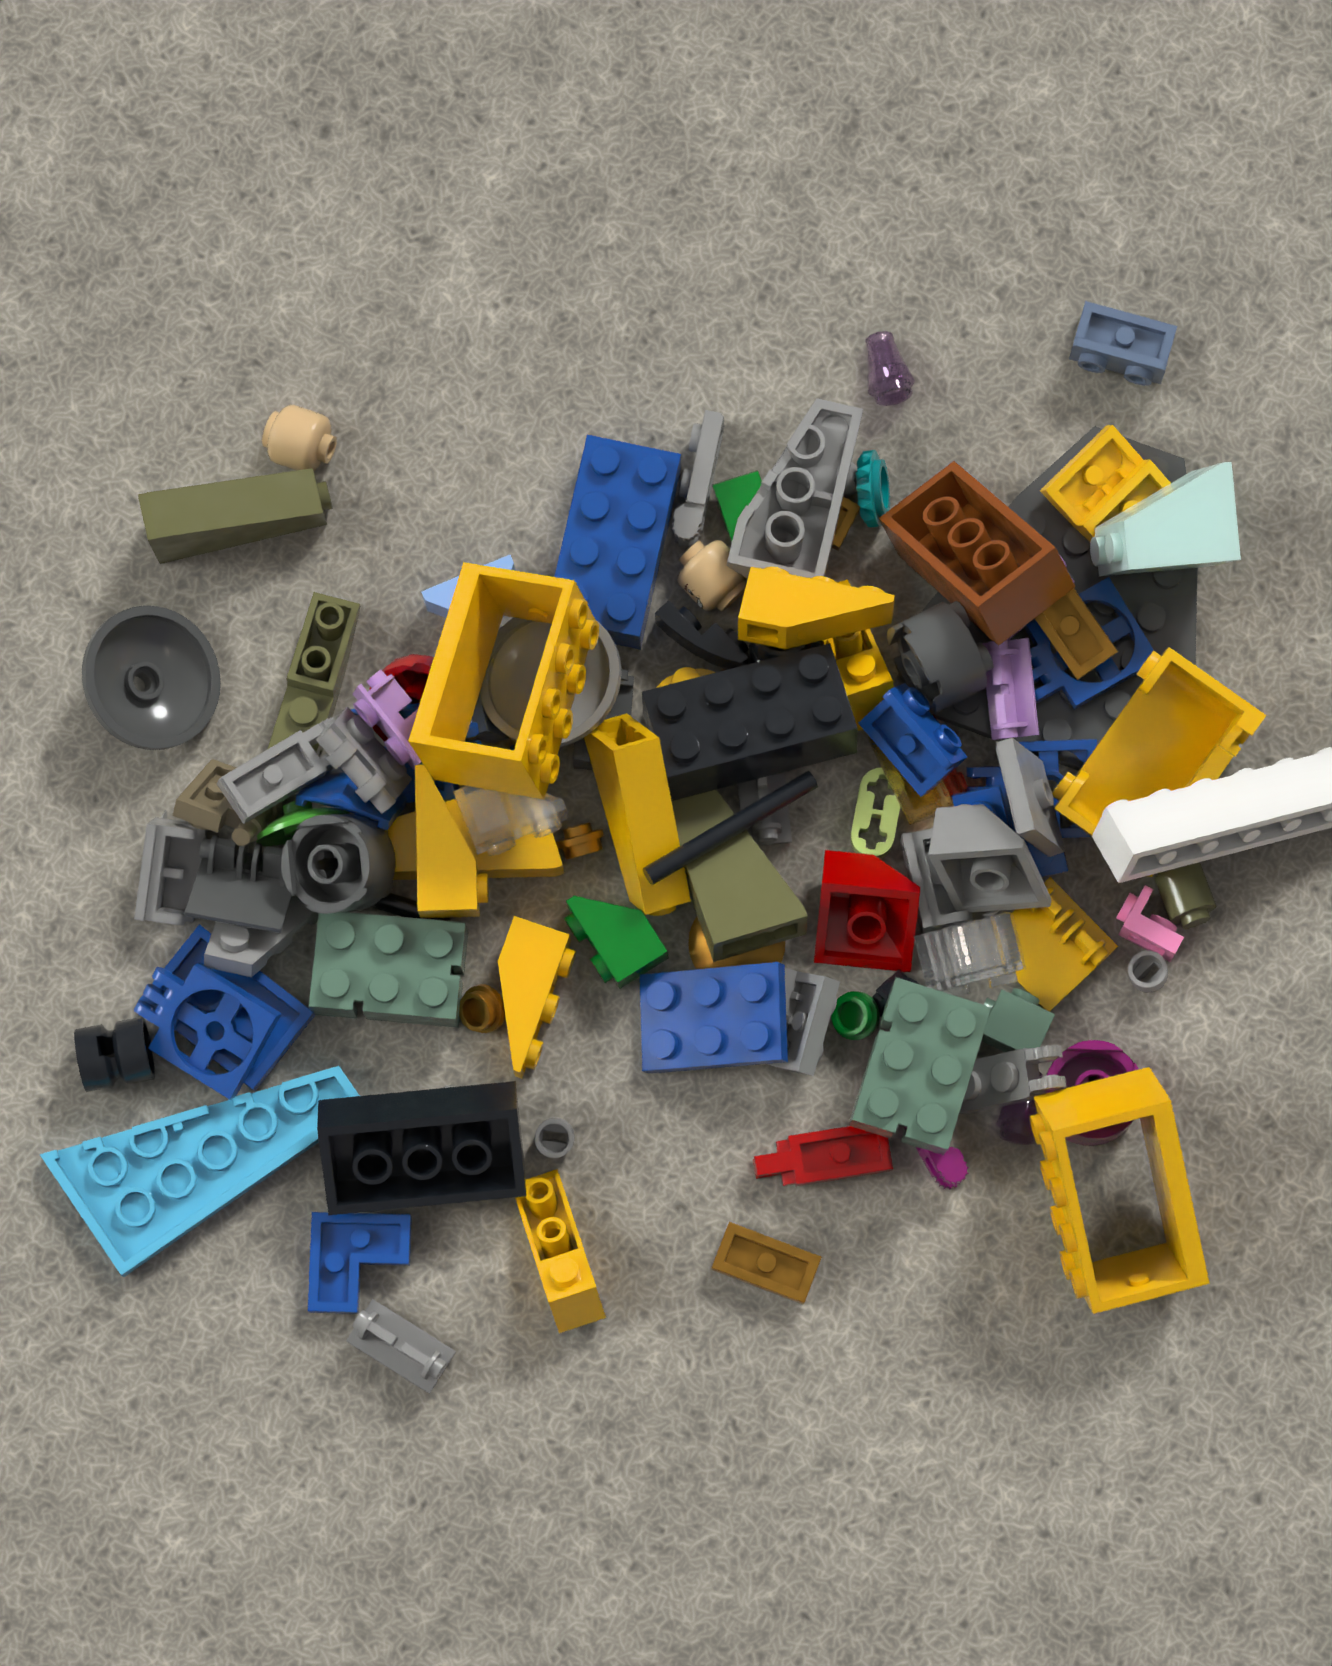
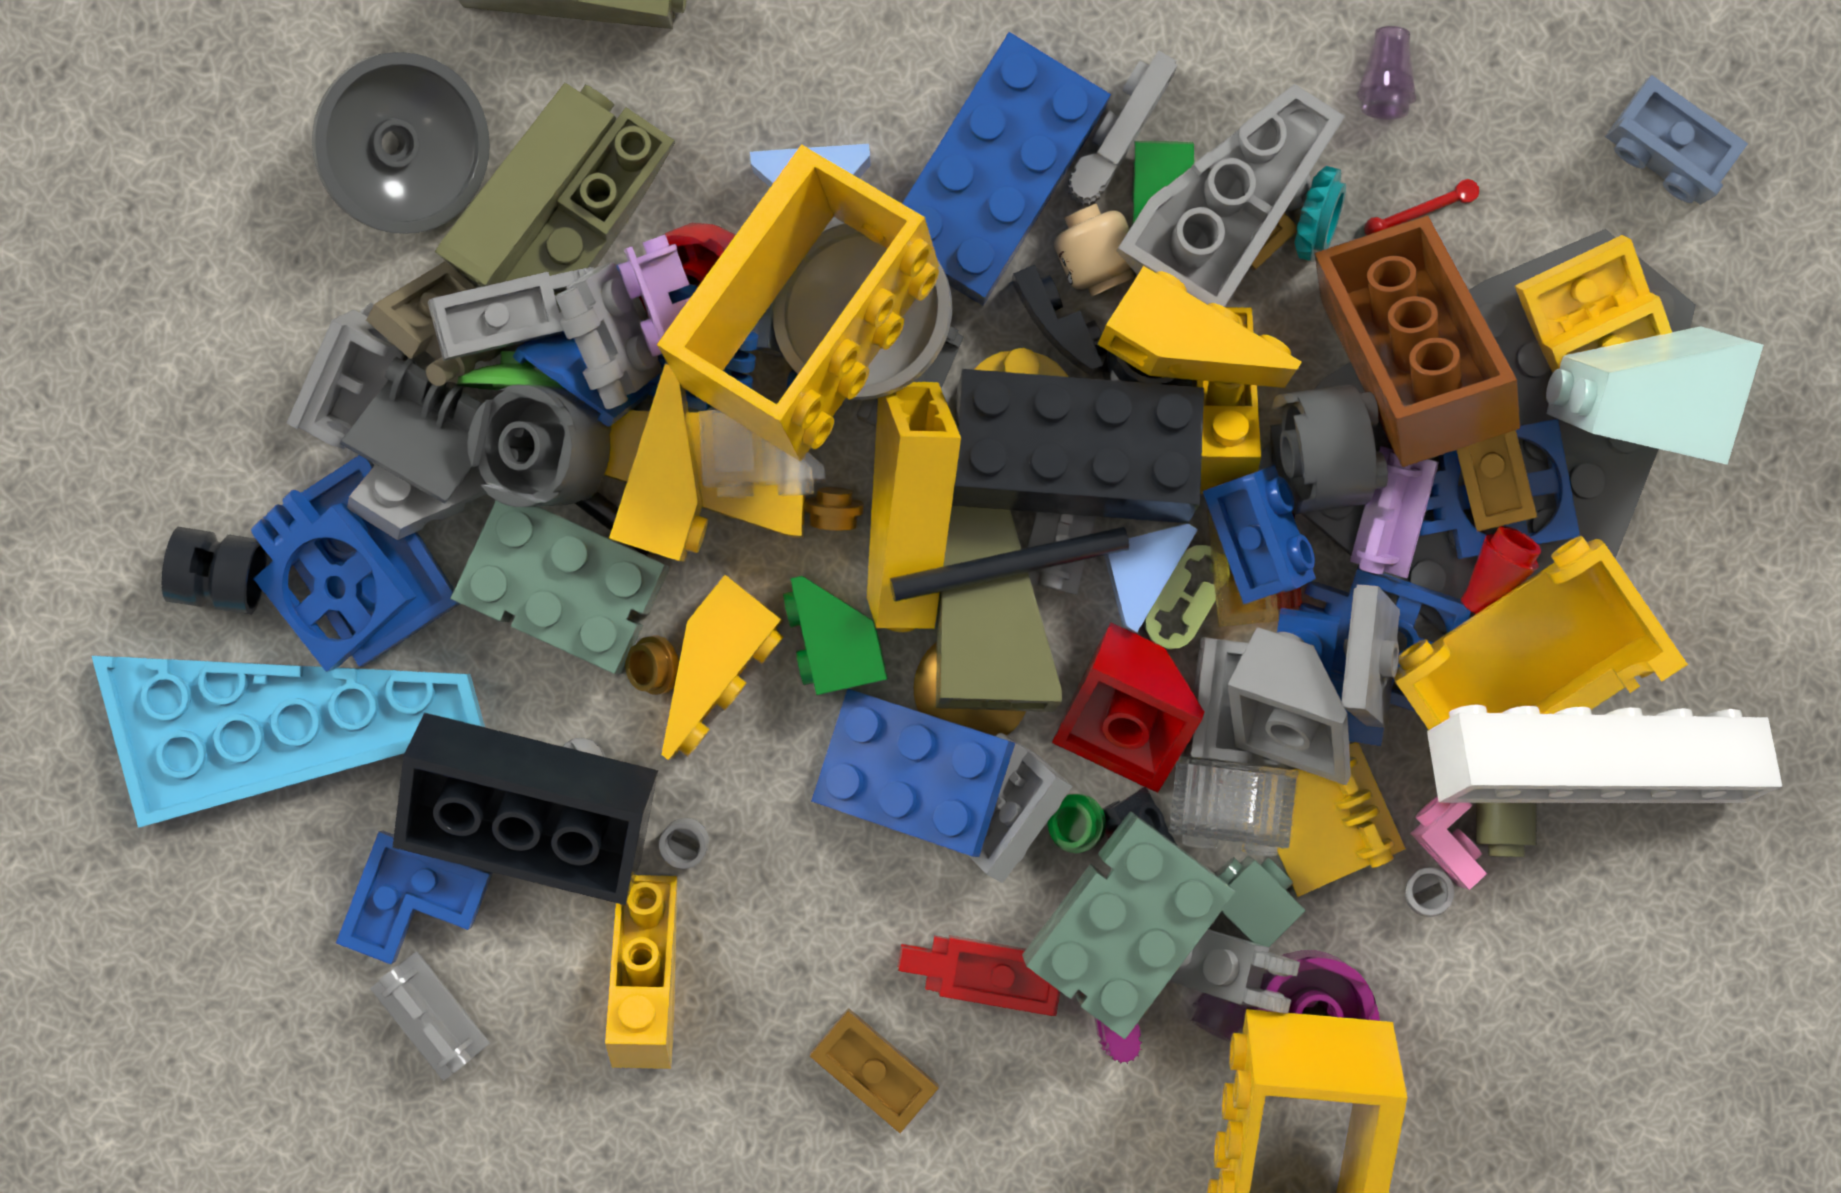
camera: 15 degrees right, 10 degrees up
(259, 677) = (526, 186): none -> olive slope
(835, 801) = (1144, 570): none -> light blue slope
(978, 436) = (1465, 192): none -> red hinge
(1105, 698) = (1502, 565): none -> red cone

